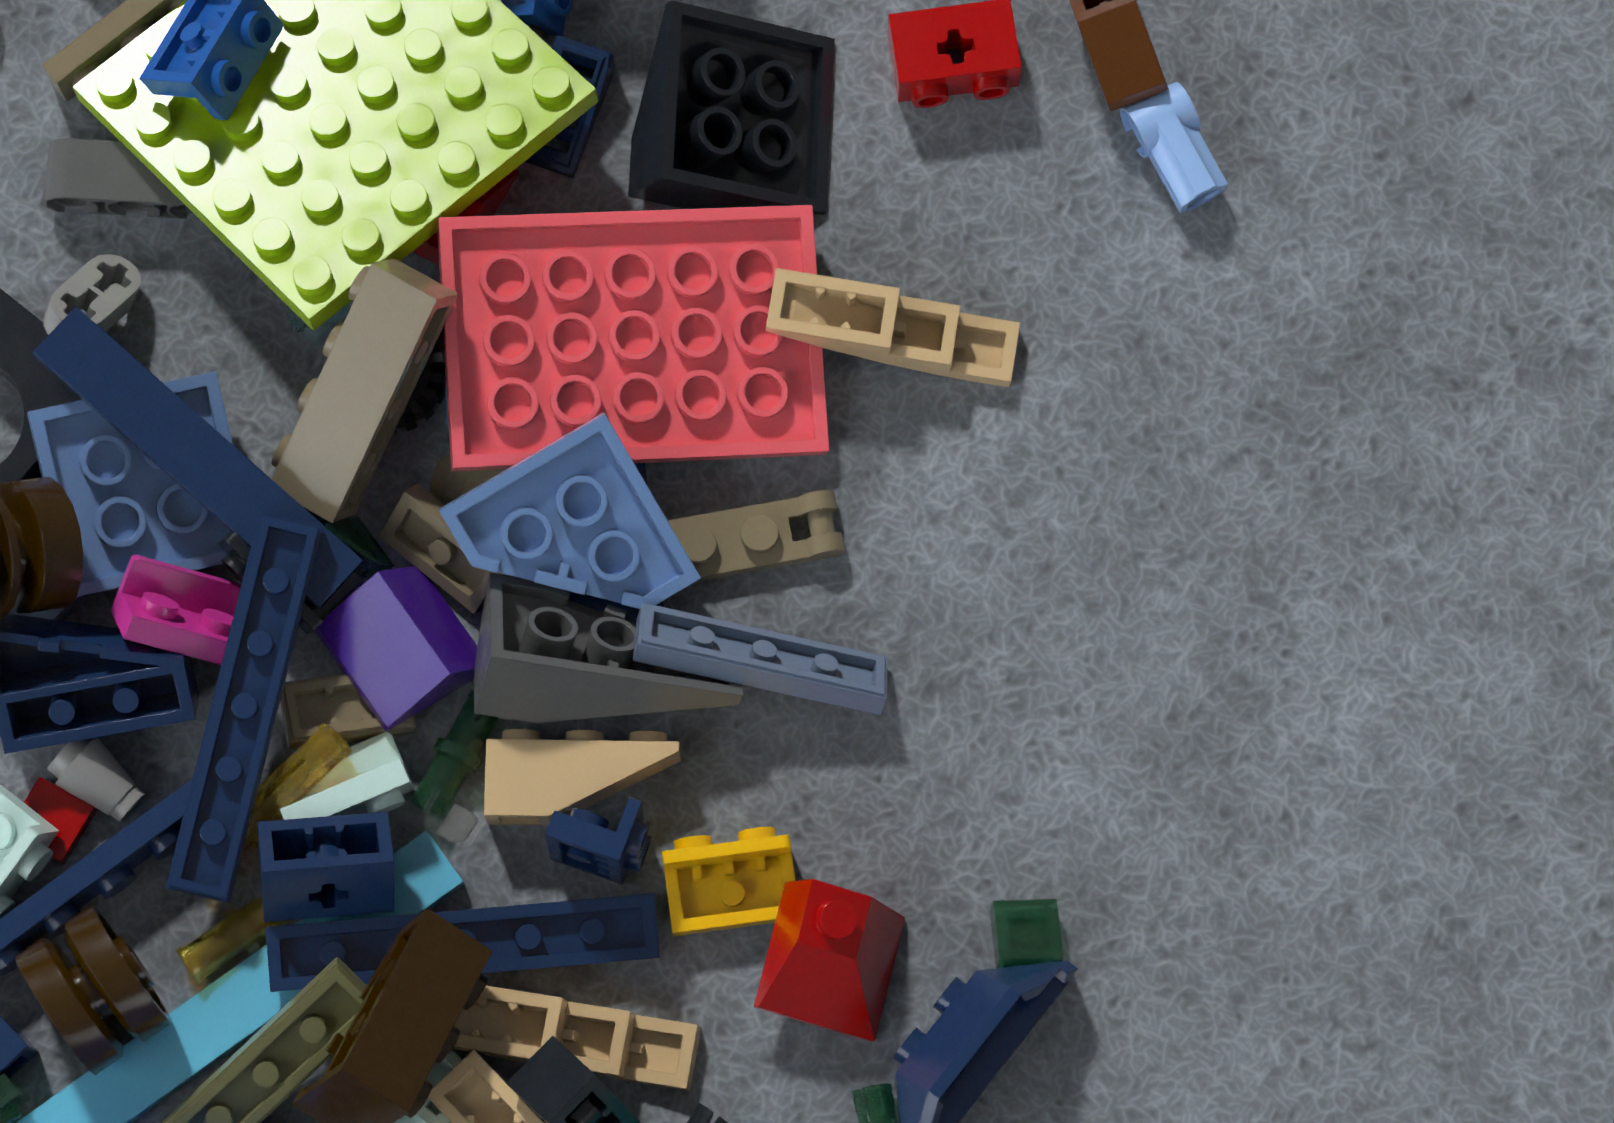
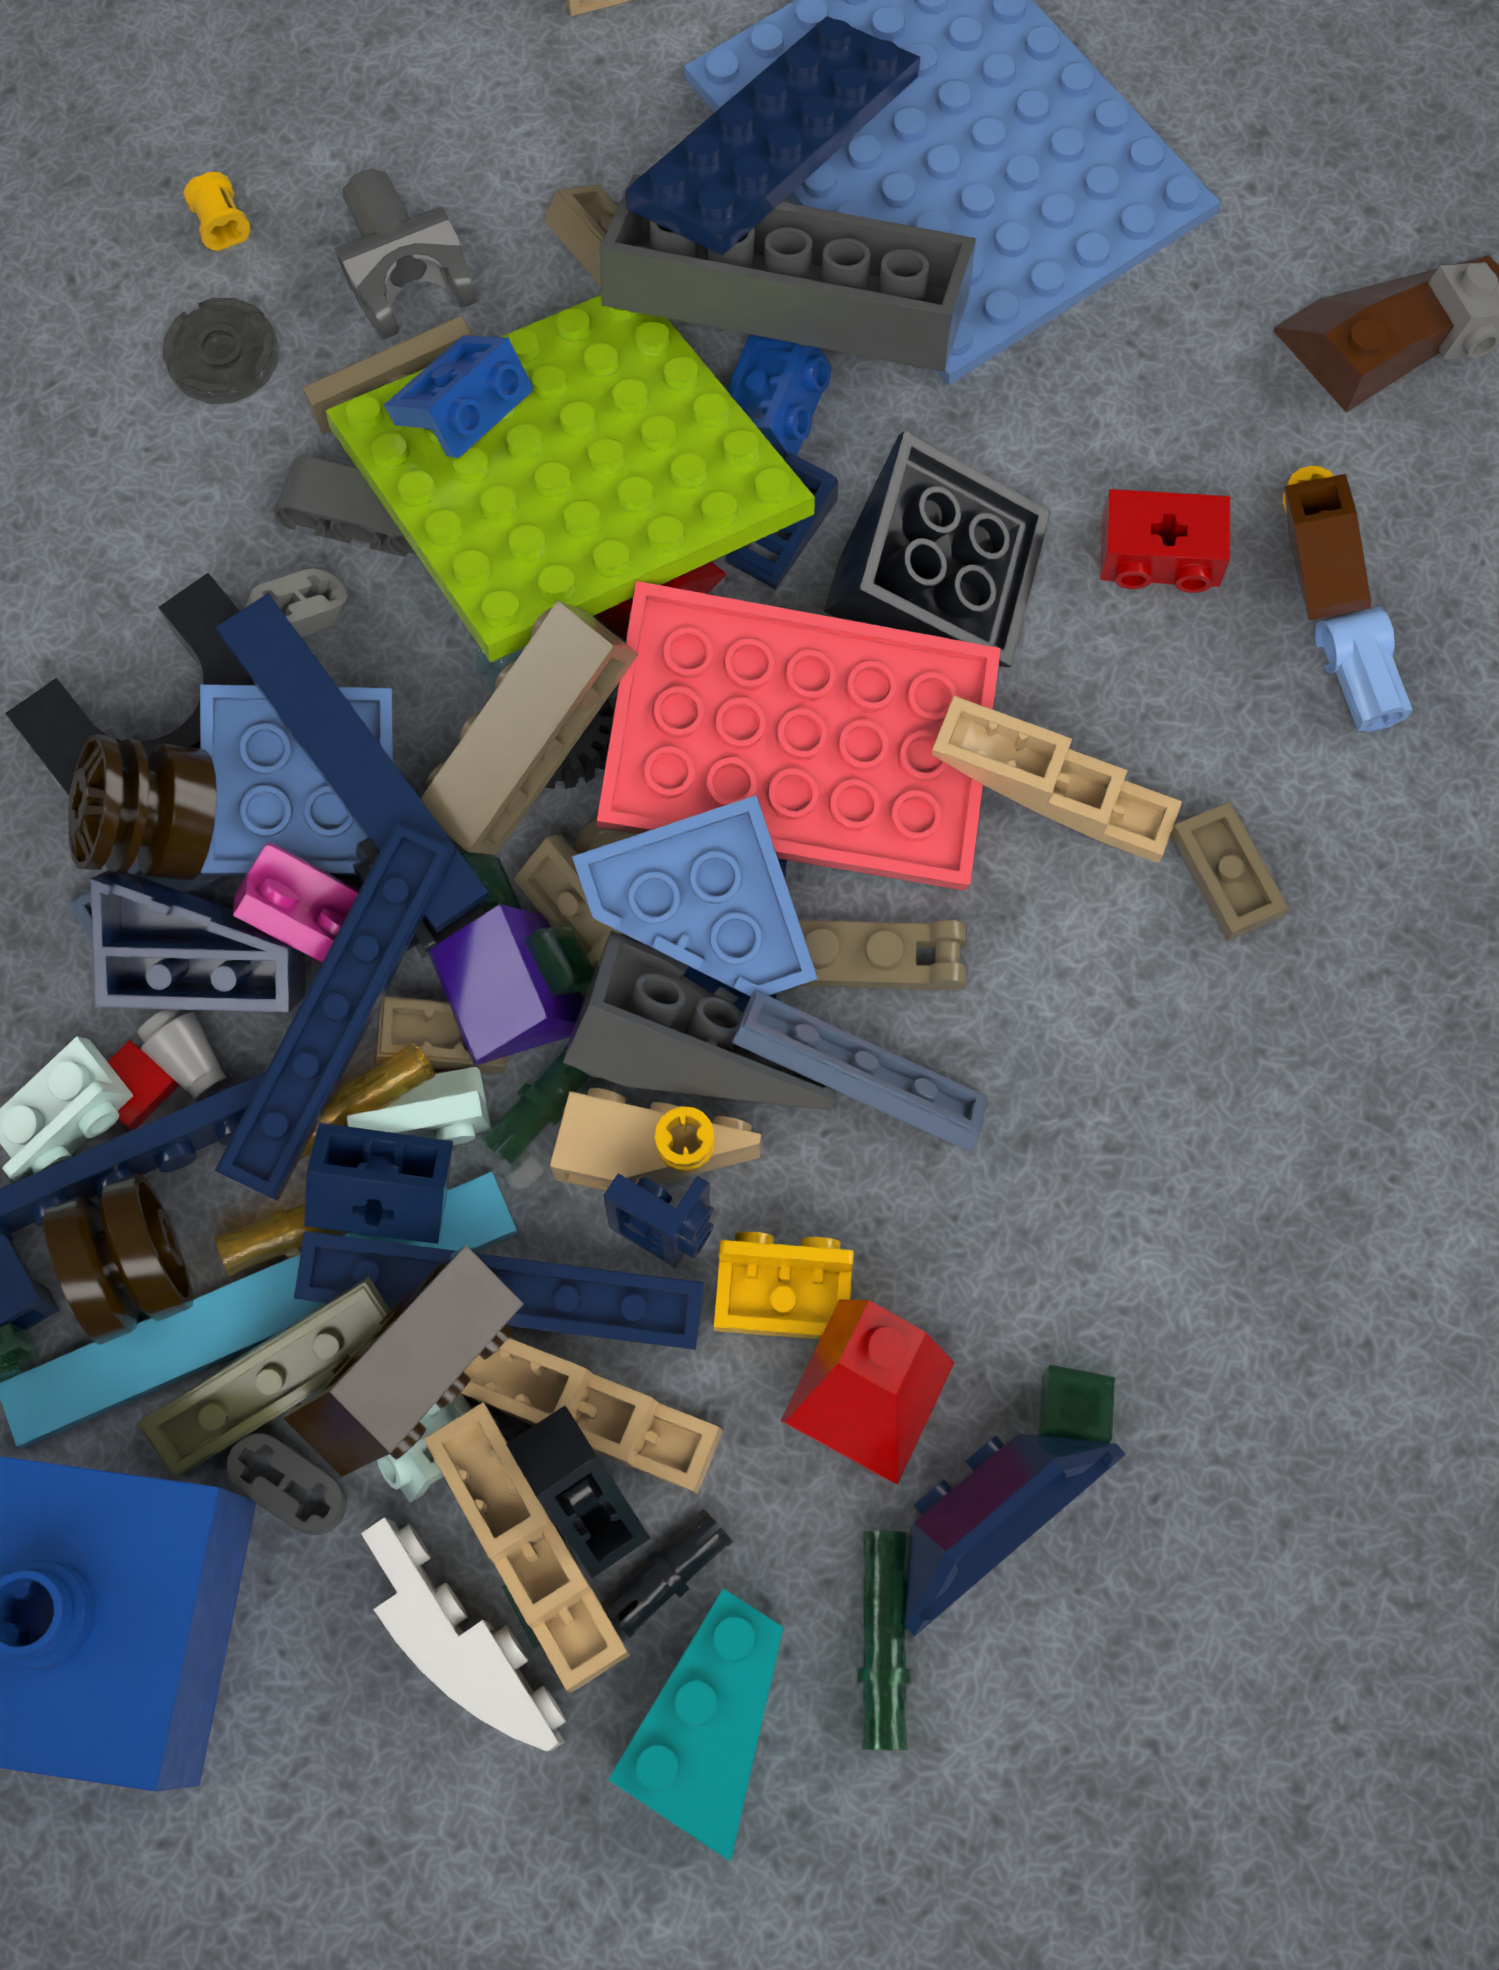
camera: 15 degrees right, 5 degrees down
(447, 610) = (560, 959): none -> tile
(626, 757) = (705, 1138): none -> yellow bush
(1078, 383) = (1229, 871): none -> dark tan plate

